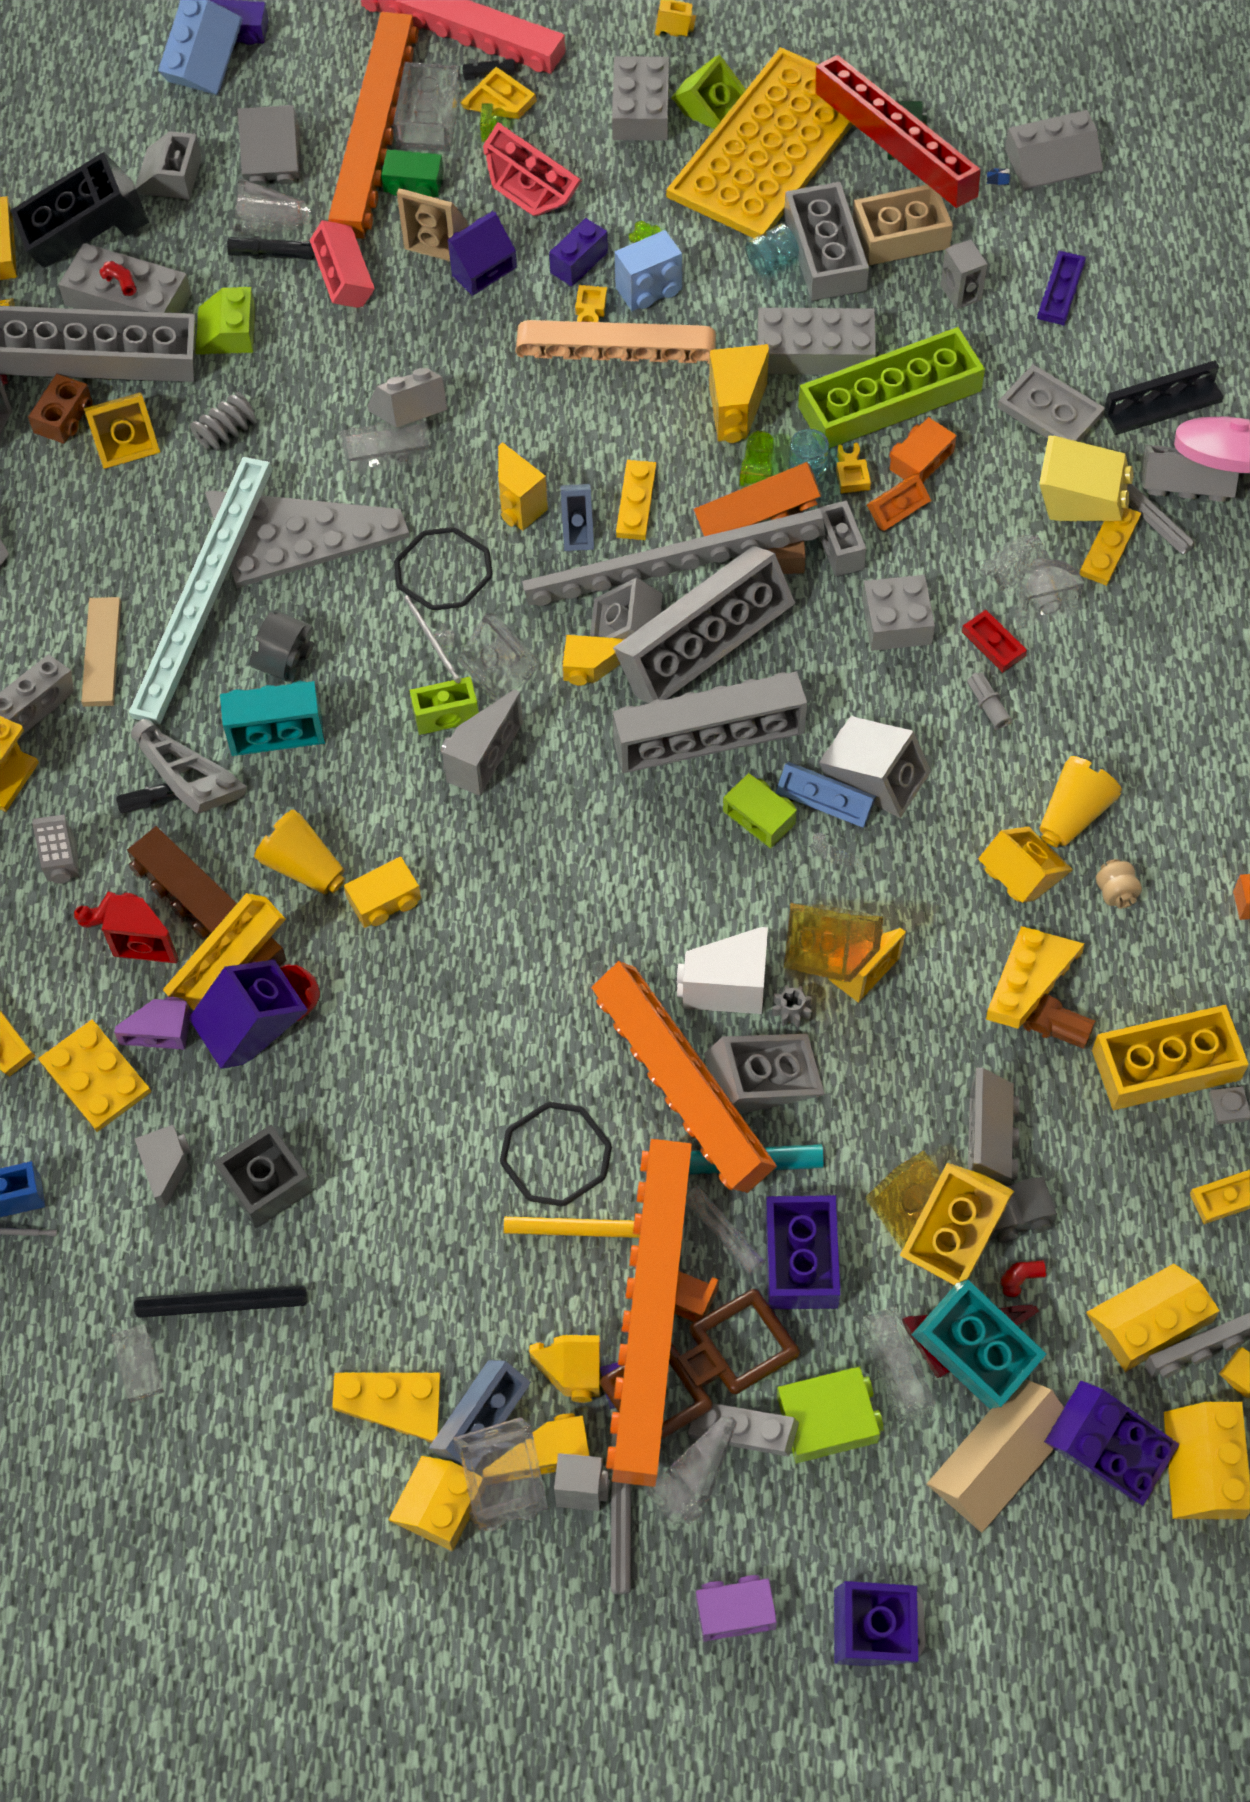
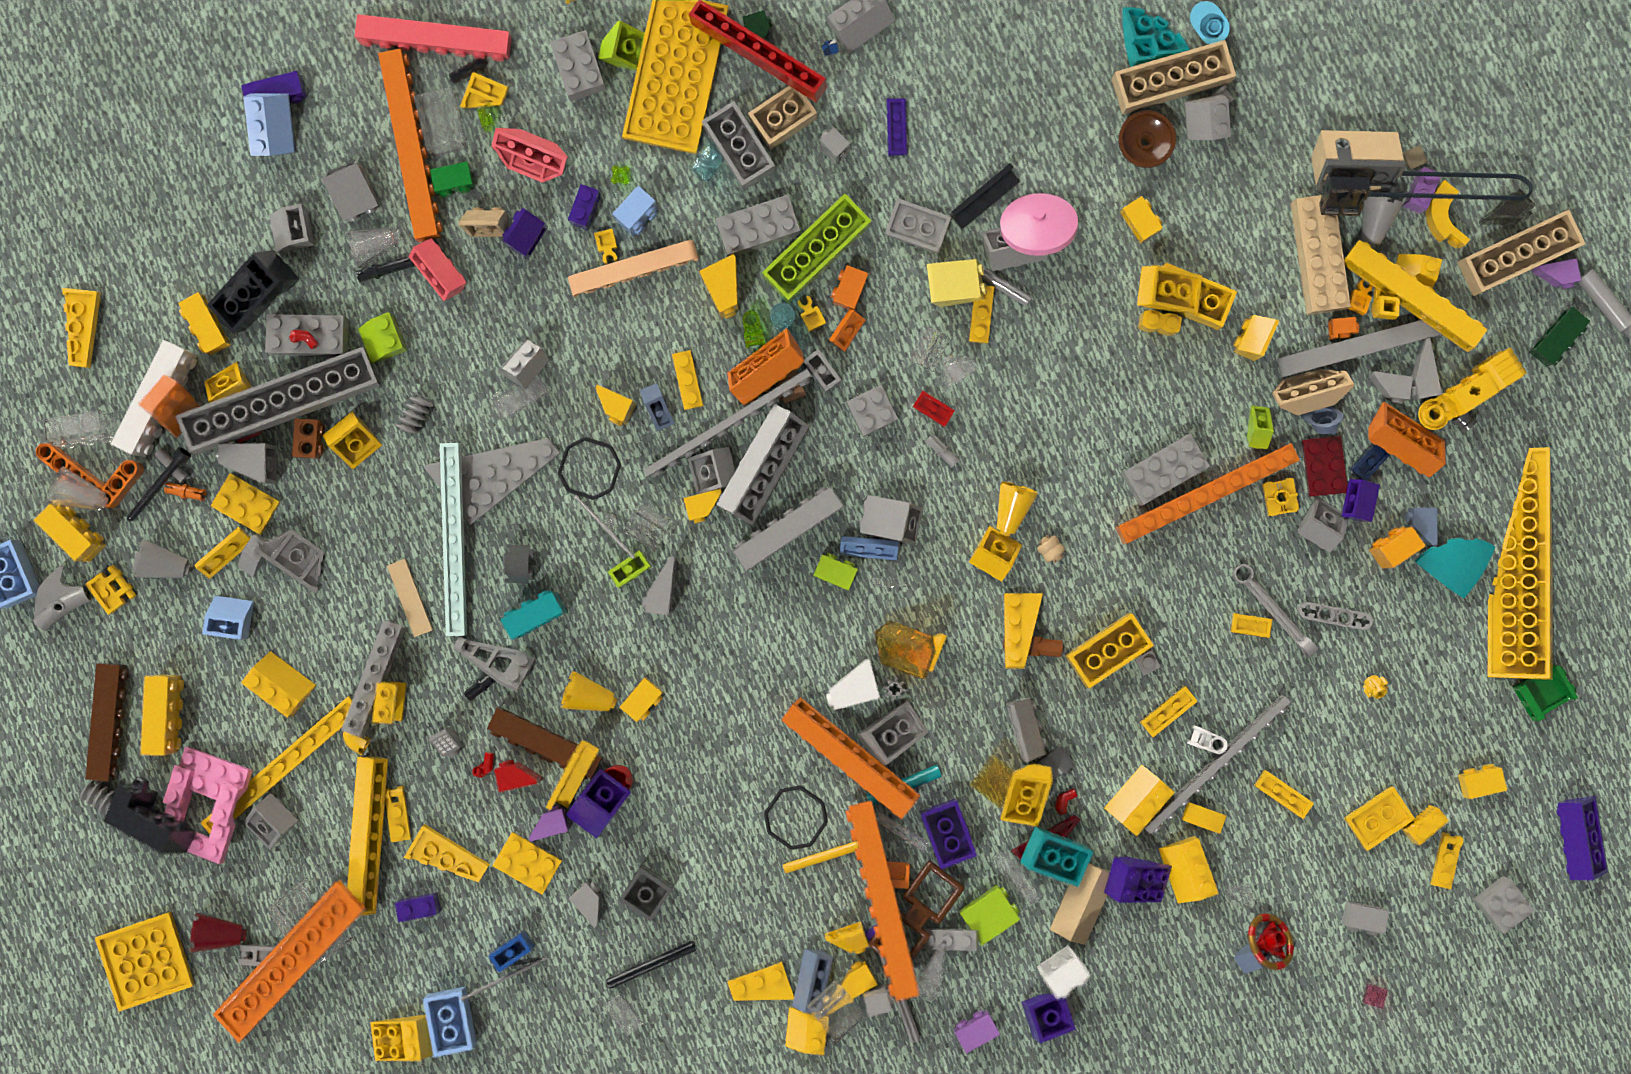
camera: 25 degrees left, 25 degrees up
(928, 1541) = (1063, 972): none -> white brick

